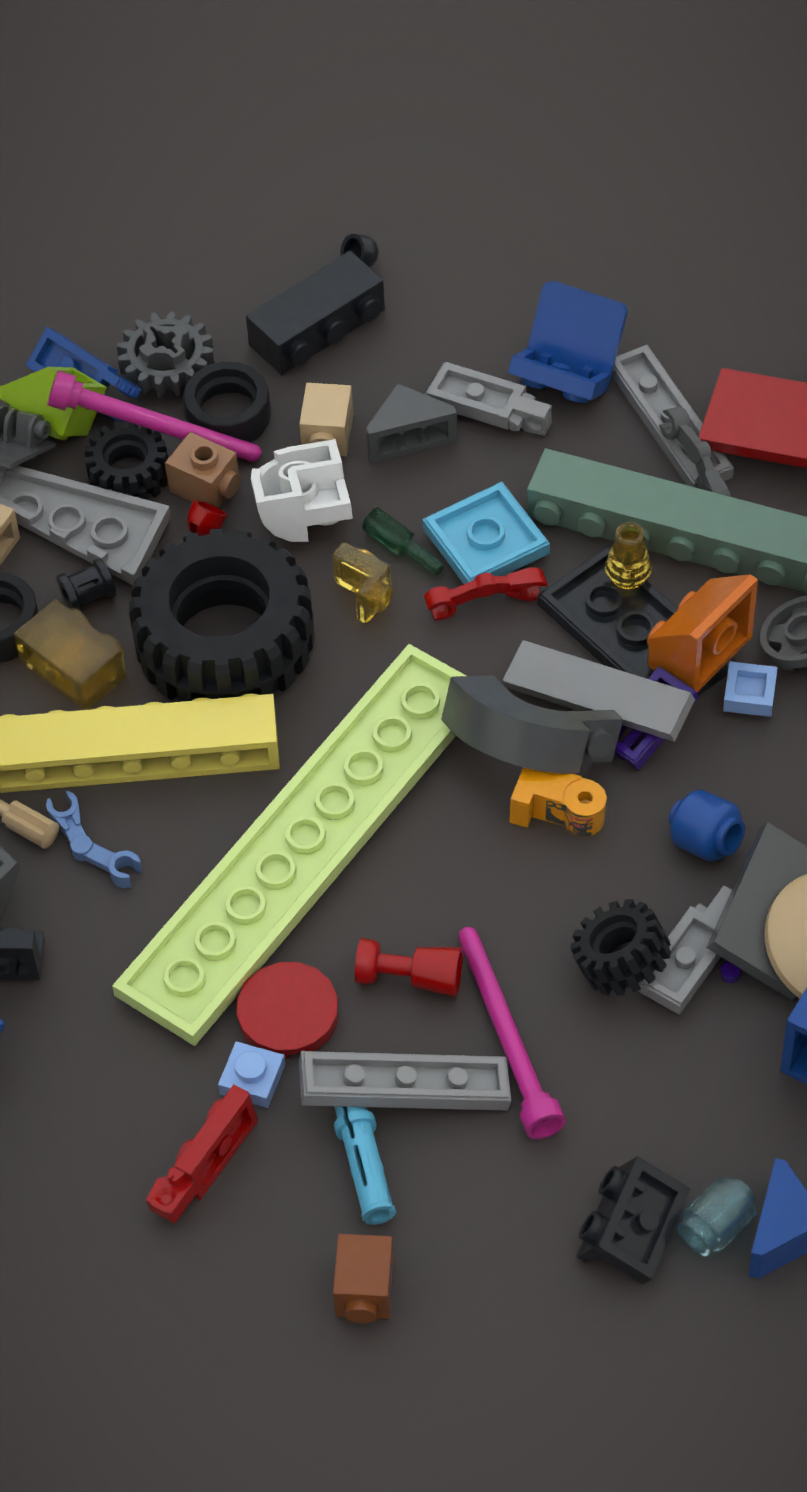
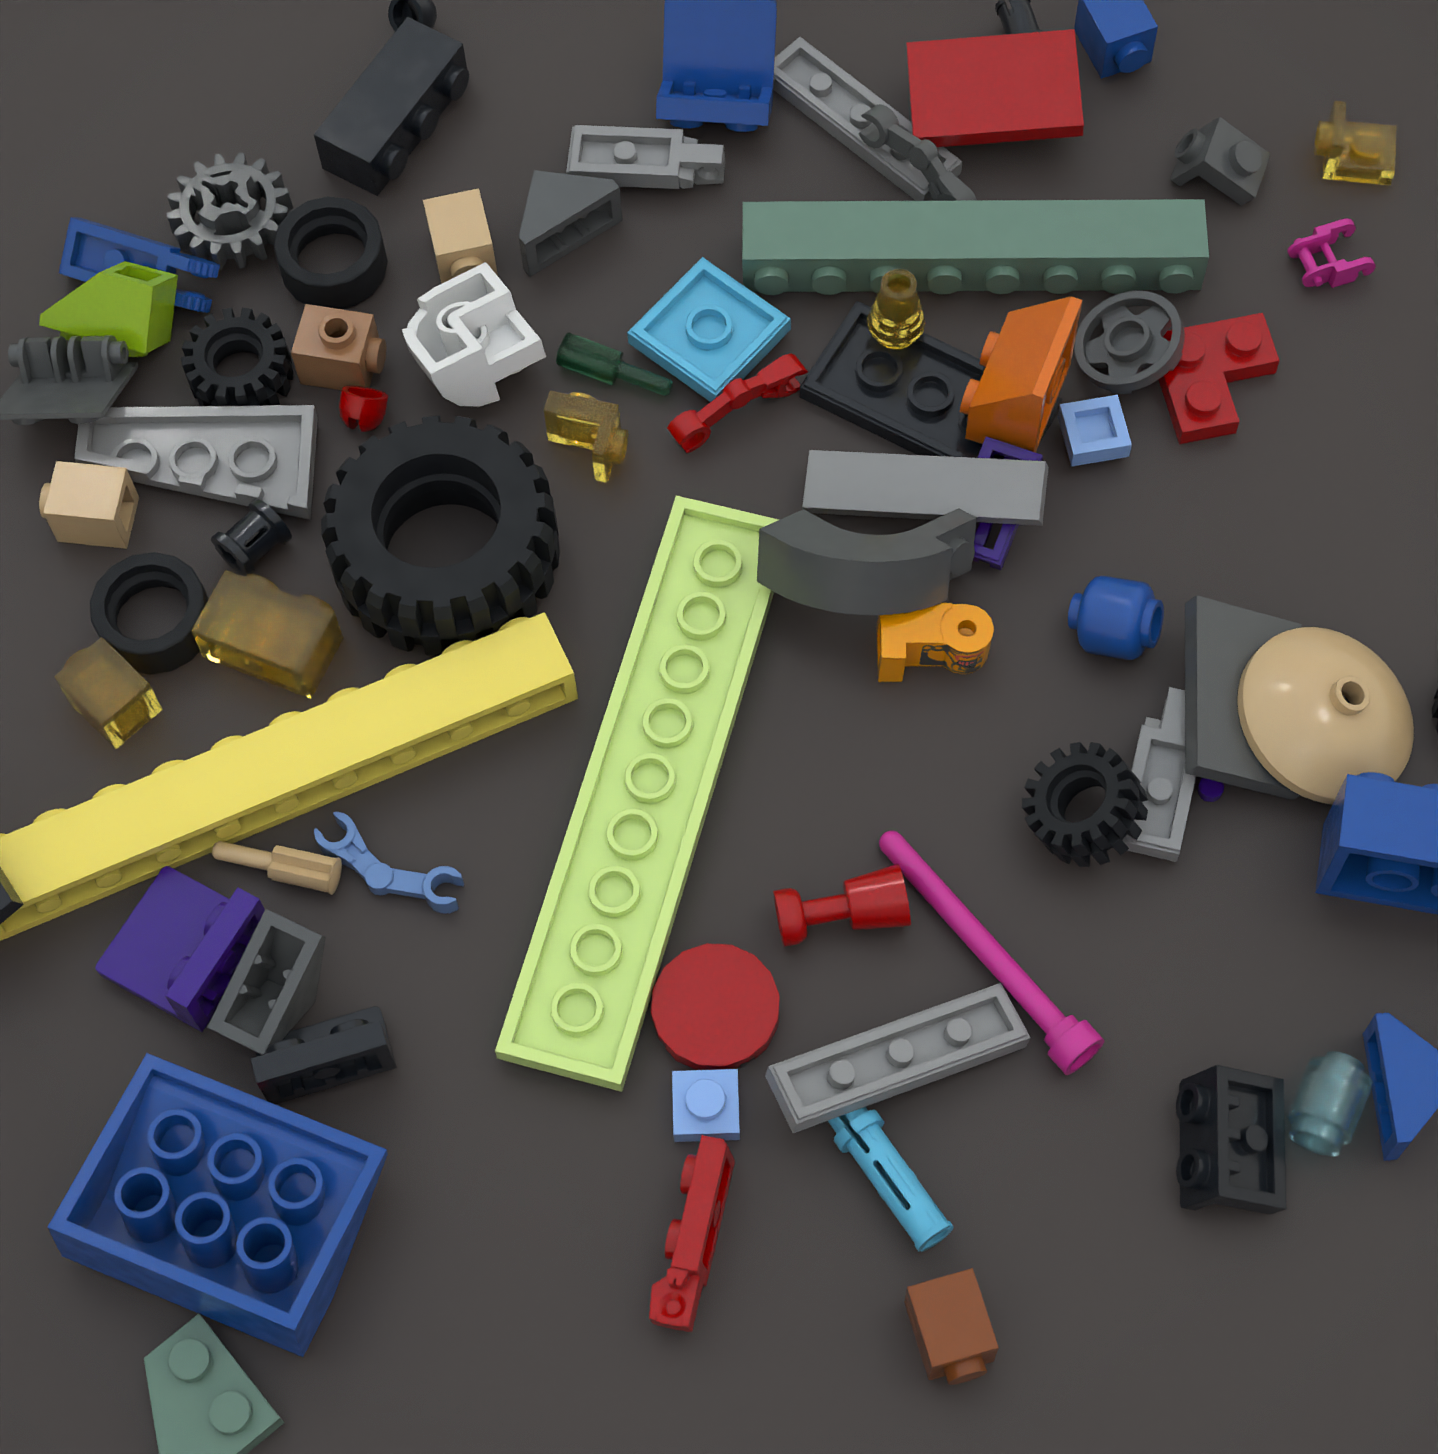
camera: 20 degrees left, 10 degrees up
(69, 393) = (141, 300): dark pink piece -> none

